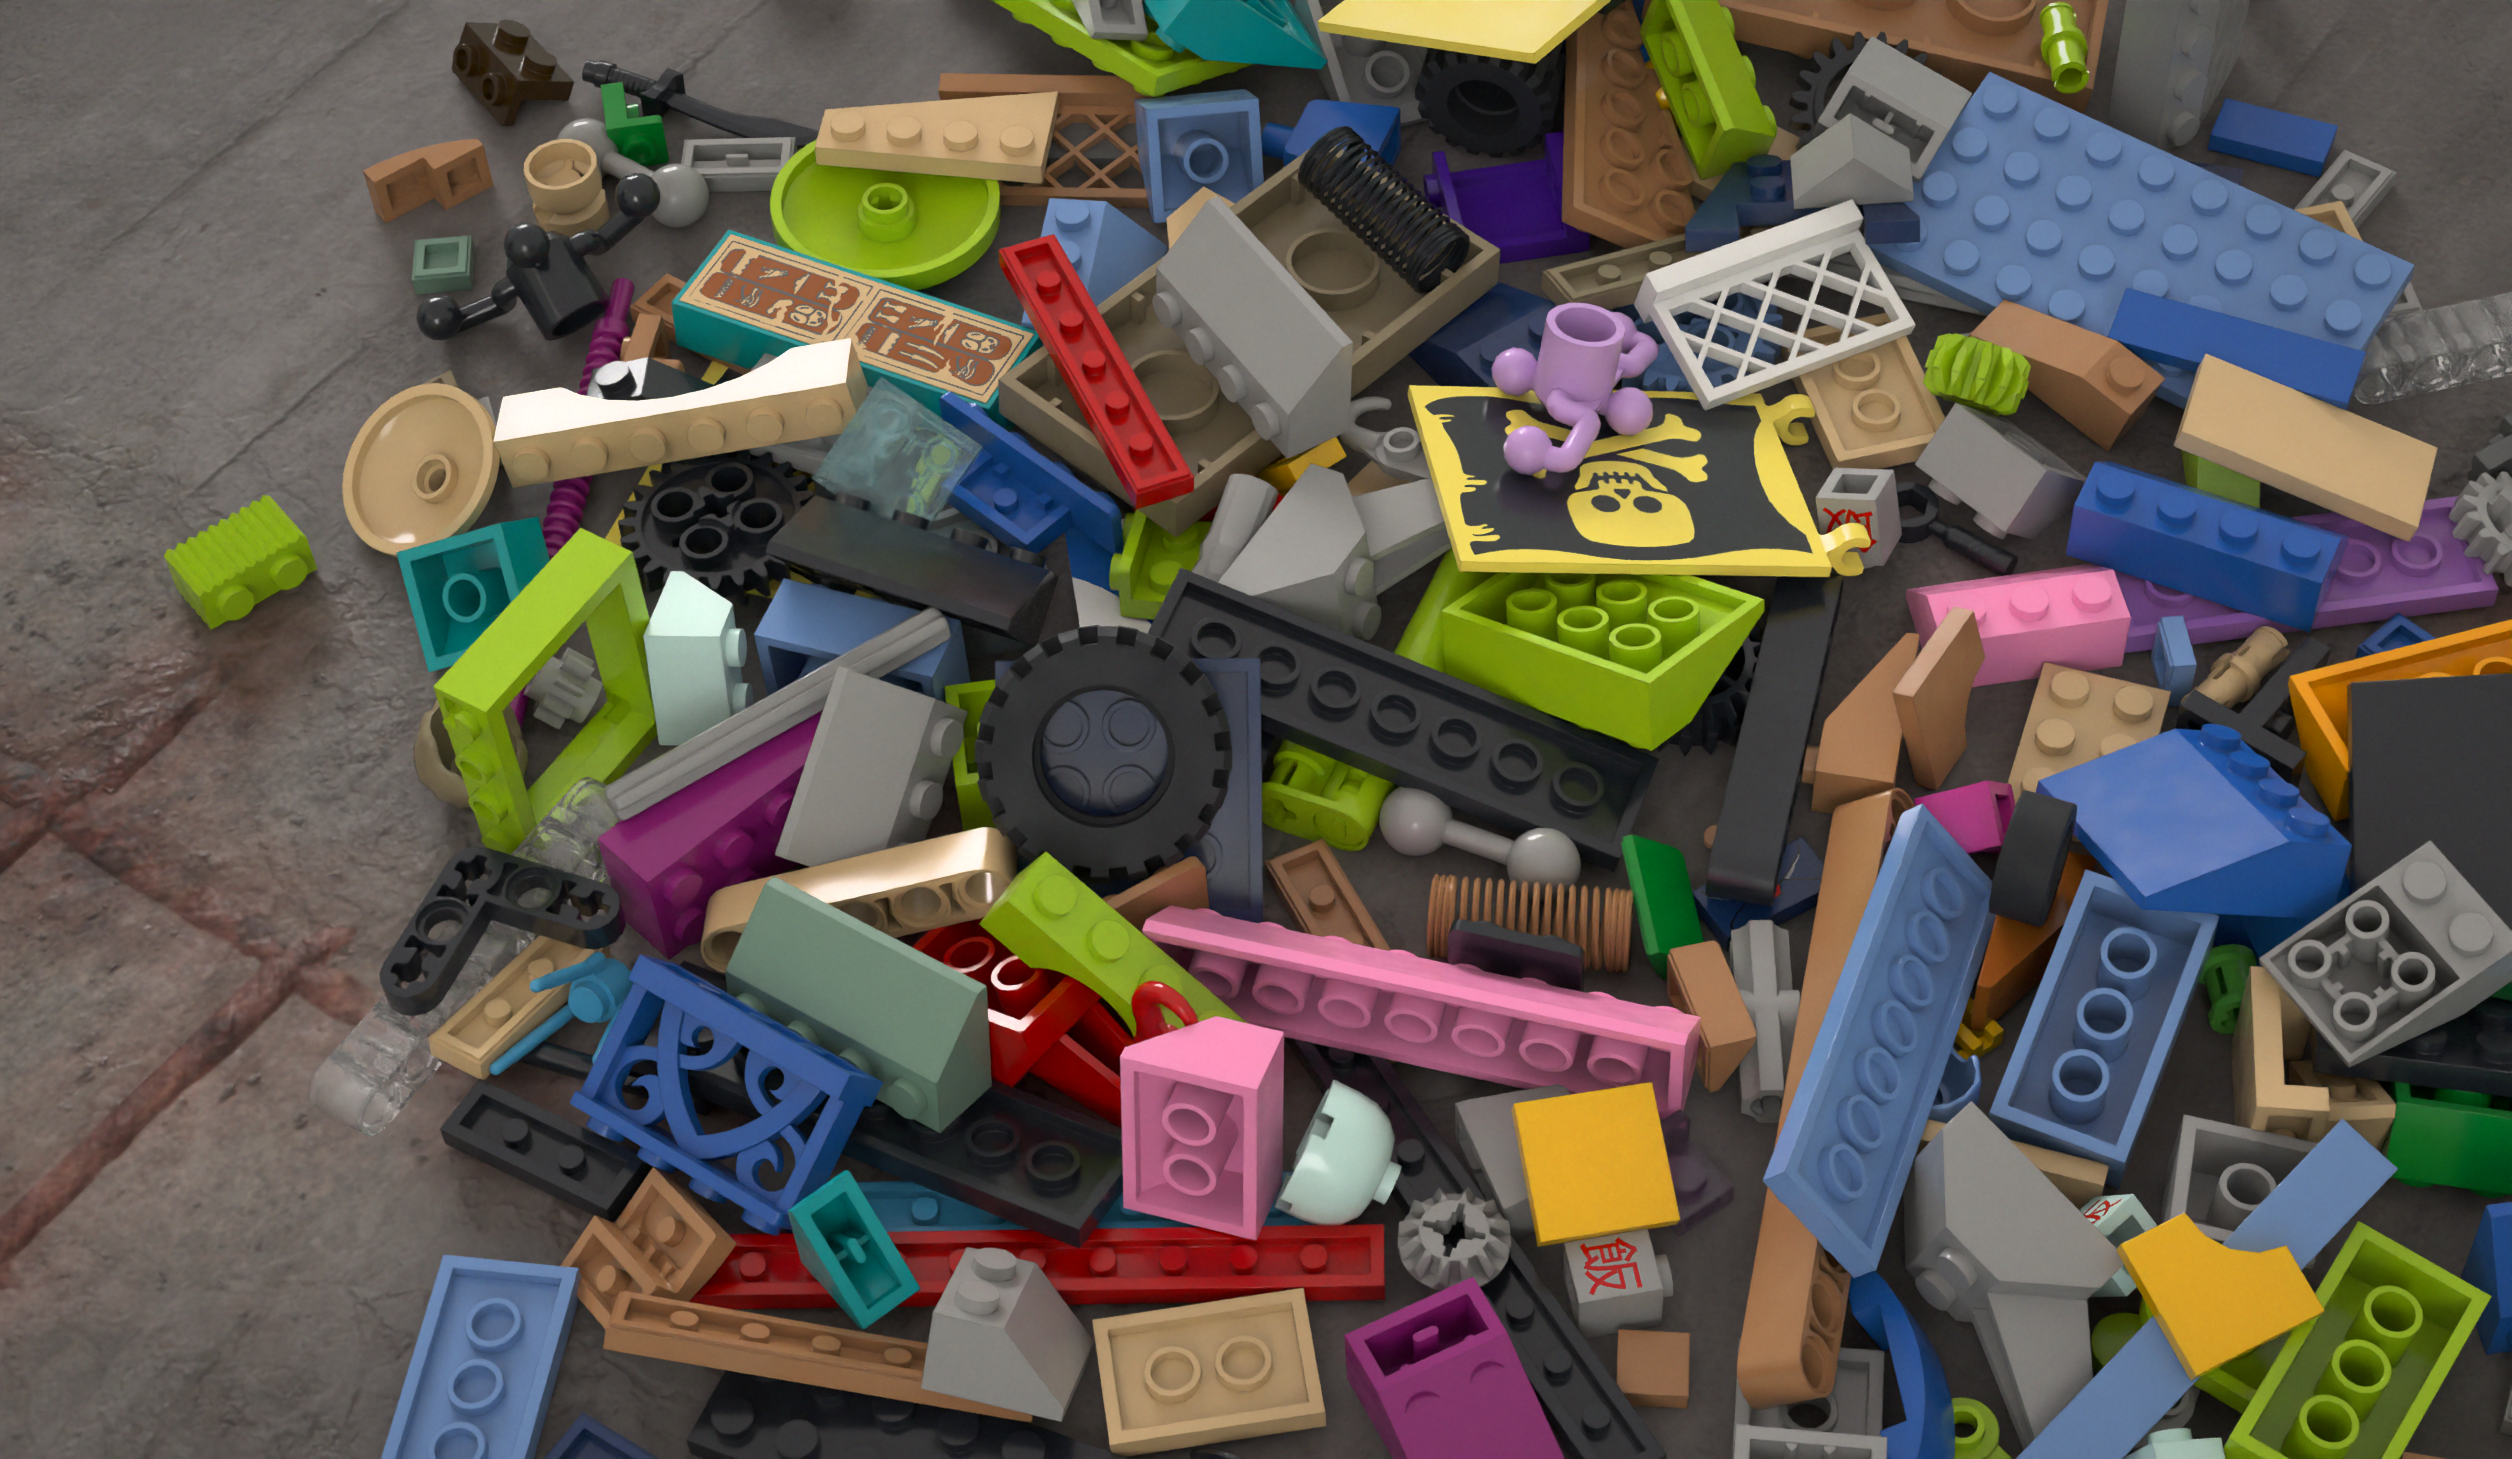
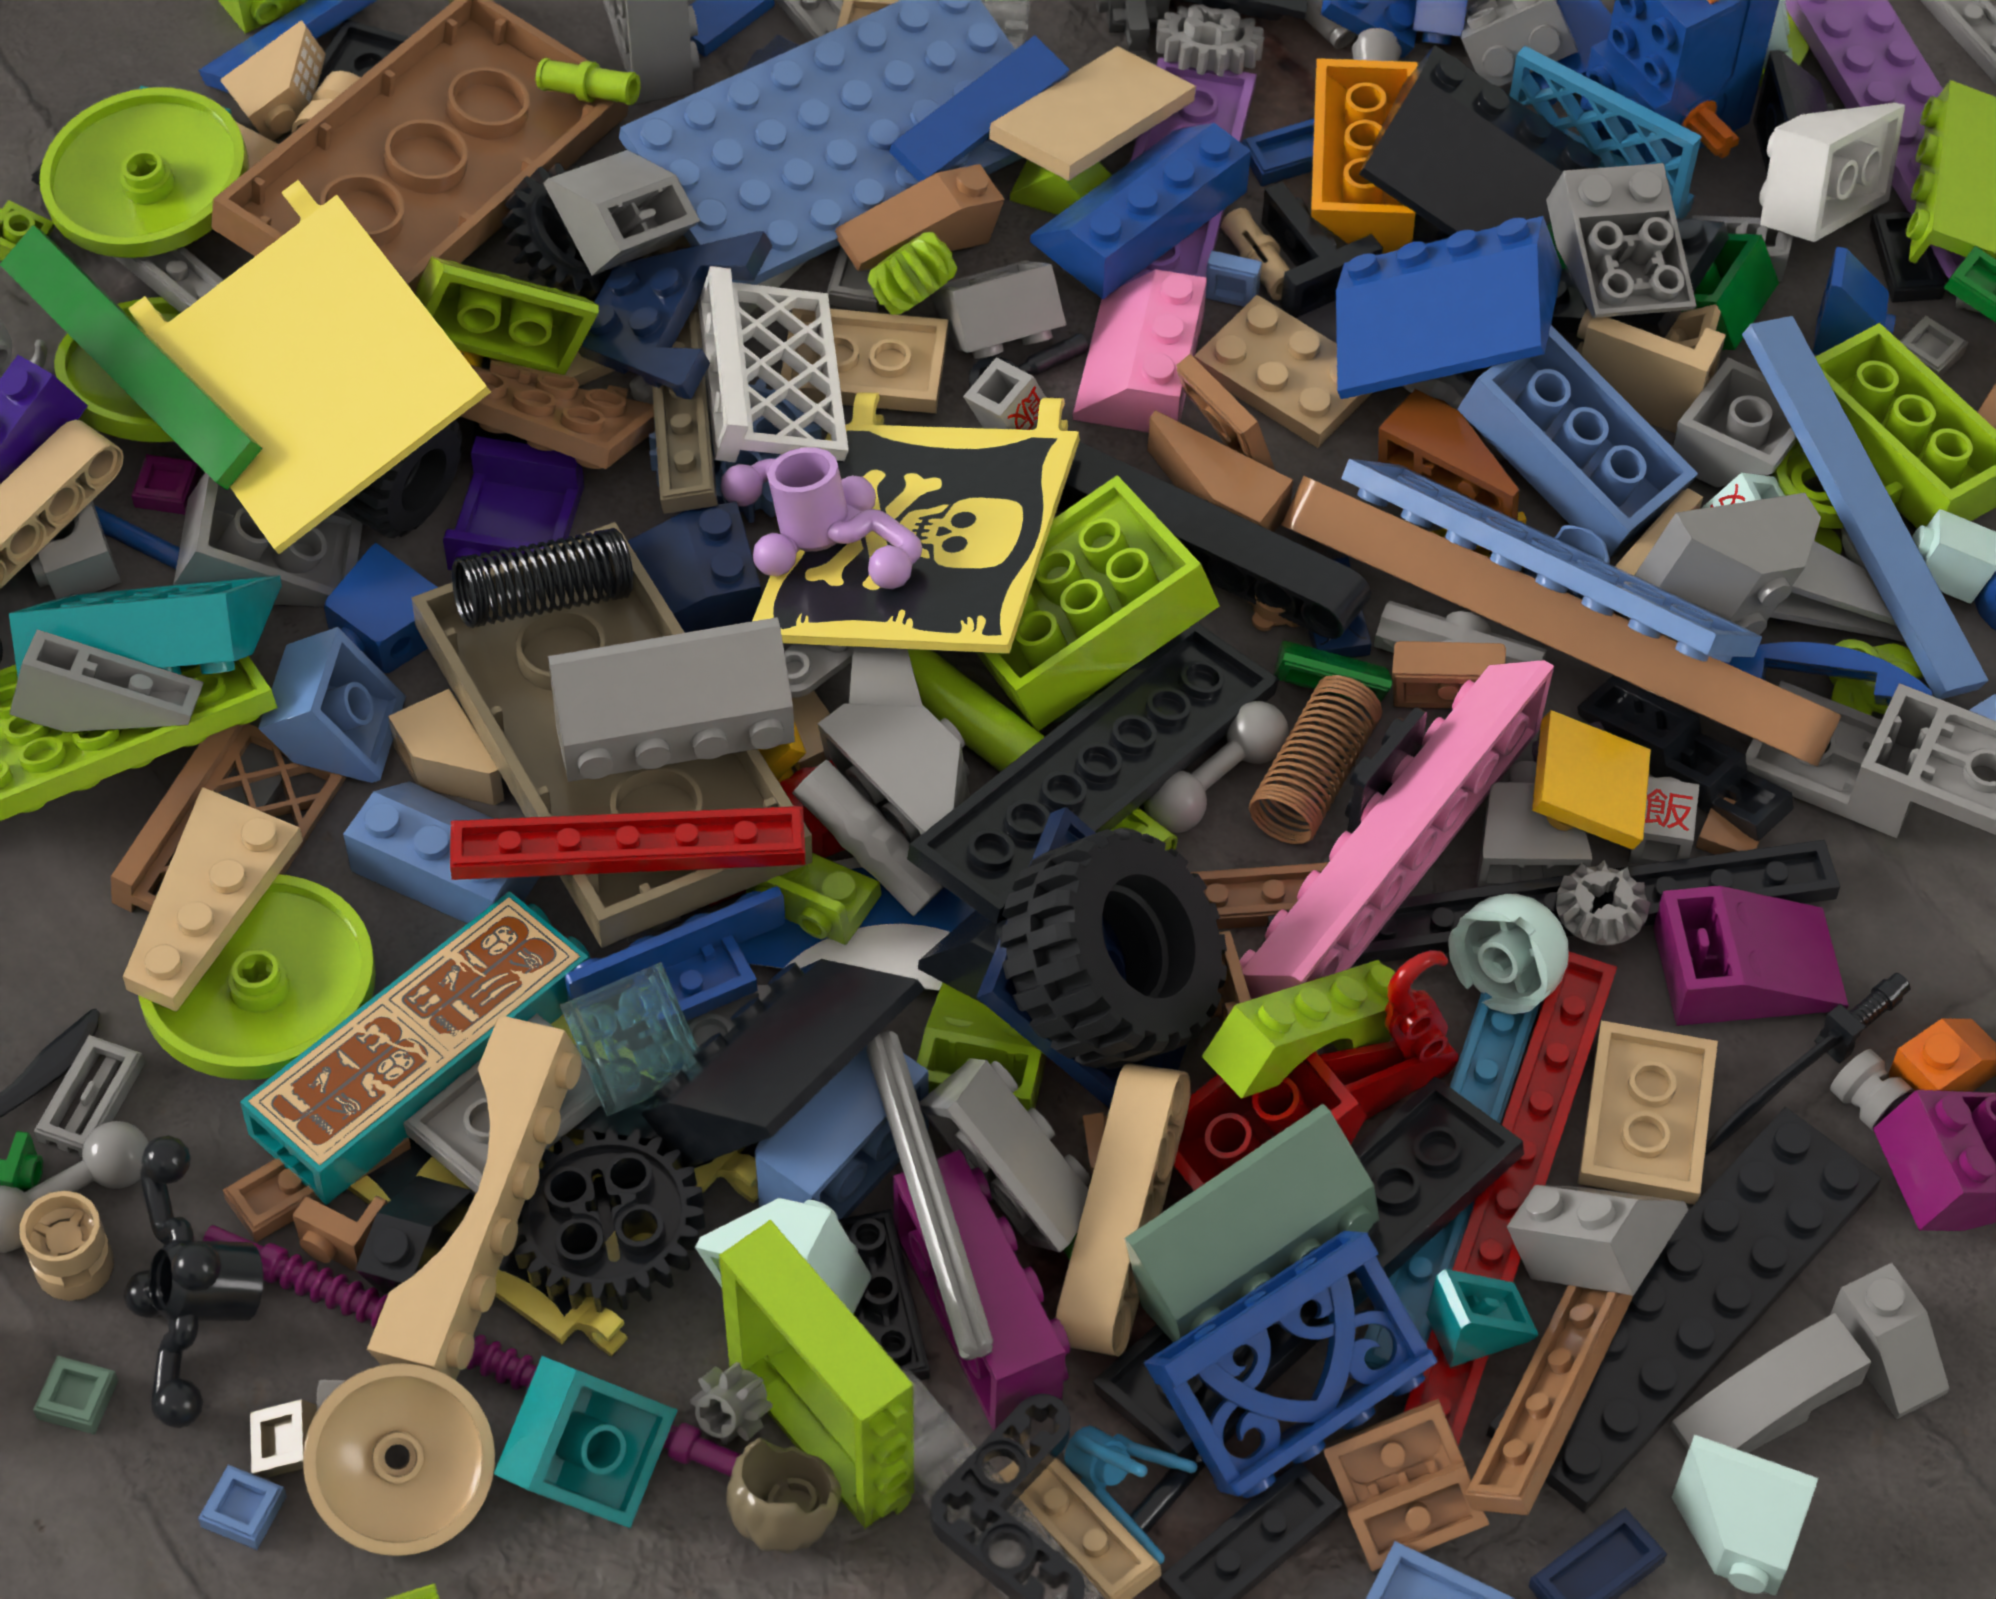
camera: 75 degrees left, 5 degrees up
(360, 399) = (242, 1507): none -> medium blue tile
(1204, 1125) = (1495, 998): bright pink slope -> none
(1710, 1303) = (1688, 755): none -> black slope
(1850, 164) = (681, 256): light grey slope -> none
(1974, 814) = (1326, 452): dark pink panel -> none
(2032, 858) = (1458, 392): black tyre -> none
(2214, 1297) = (1851, 456): yellow tile -> none

